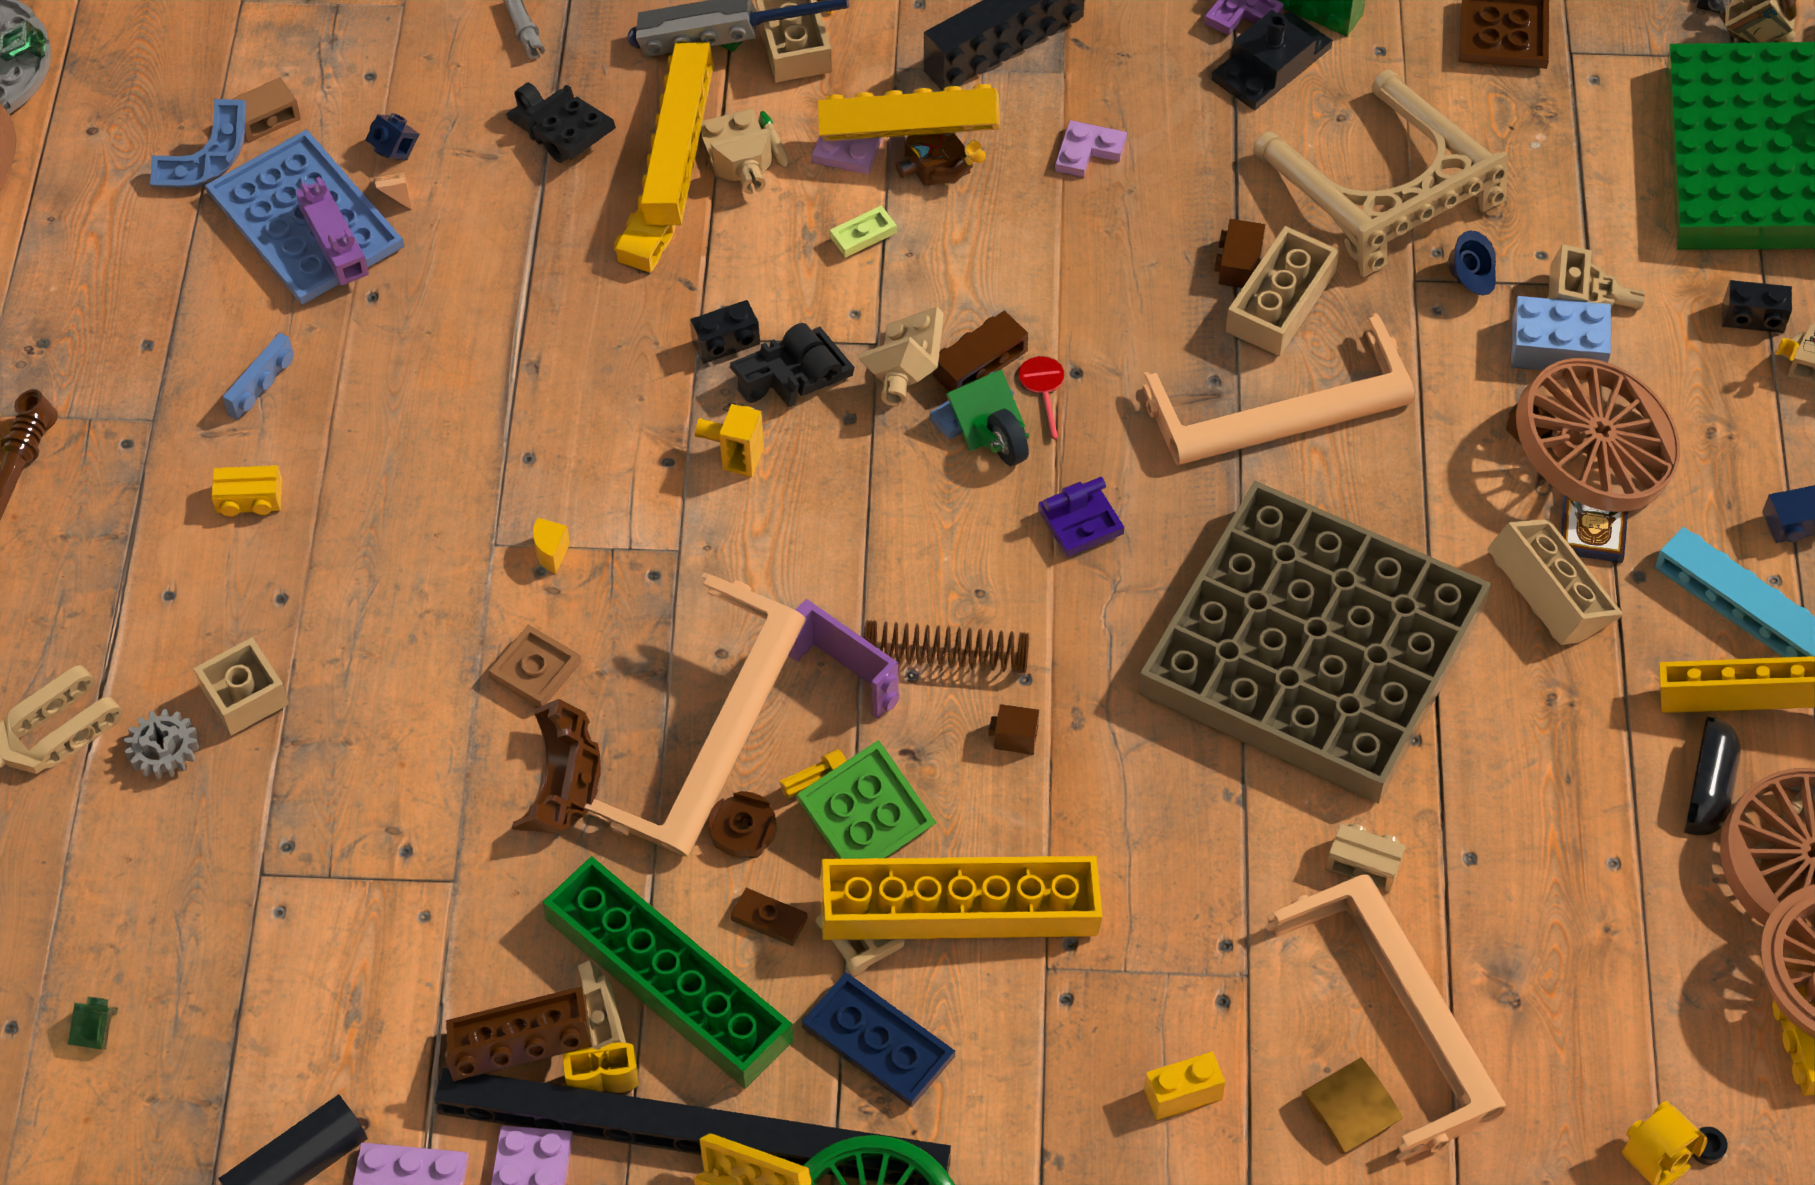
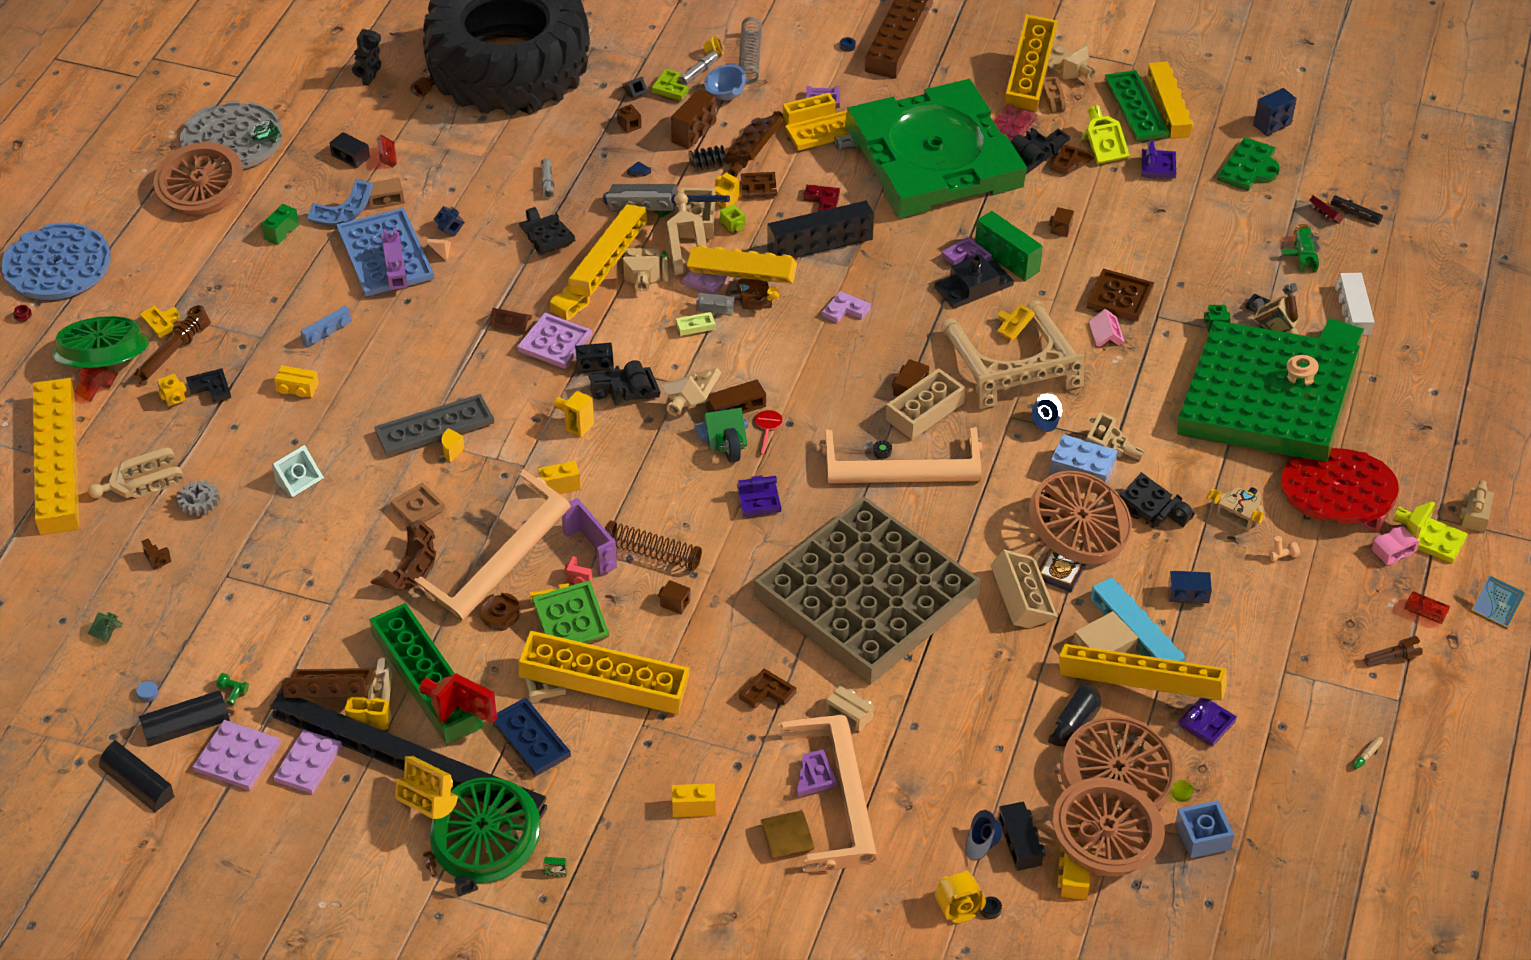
camera: 15 degrees right, 10 degrees down
(40, 556) = (171, 390): none -> yellow brick
(102, 521) = (212, 381): none -> black plate
(109, 205) = (279, 223): none -> green brick
(125, 870) = (154, 556): none -> reddish brown bracket
(175, 42) = (349, 150): none -> black brick
(209, 1123) = (147, 691): none -> medium blue tile
(238, 31) = (386, 151): none -> clear red plate
(241, 686) = (252, 477): tan brick -> none
(312, 657) = (296, 471): none -> light aqua slope
(360, 1075) = (224, 681): none -> green piece
(505, 514) = (431, 424): none -> dark grey plate
(558, 293) = (509, 319): none -> copper panel
(646, 314) = (554, 340): none -> lavender plate
(752, 560) = (561, 477): none -> yellow brick
(758, 1004) = (460, 692): none -> red plate
(769, 916) = (496, 661): reddish brown plate -> none
(782, 53) = (683, 218): none -> tan piece
(845, 729) = (577, 574): none -> coral bracket
(852, 30) = (736, 221): none -> lime brick
(881, 187) = (715, 303): none -> light grey hinge
(1222, 848) = (766, 685): none -> reddish brown plate
(1240, 385) = (882, 449): none -> black tile
(1354, 986) = (815, 774): none -> medium lavender wing
(1363, 113) = (1014, 322): none -> yellow hinge
(1504, 93) = (1106, 328): none -> bright pink panel
(1653, 1027) = (983, 835): none -> dark blue piece
(1666, 31) = (1217, 313): none -> green brick
(1692, 380) = (1154, 503): none -> black plate
(1710, 630) = (1107, 634): none -> tan brick
(1710, 1010) = (1021, 836): none -> black brick
(1757, 306) = (1209, 472): black brick -> none

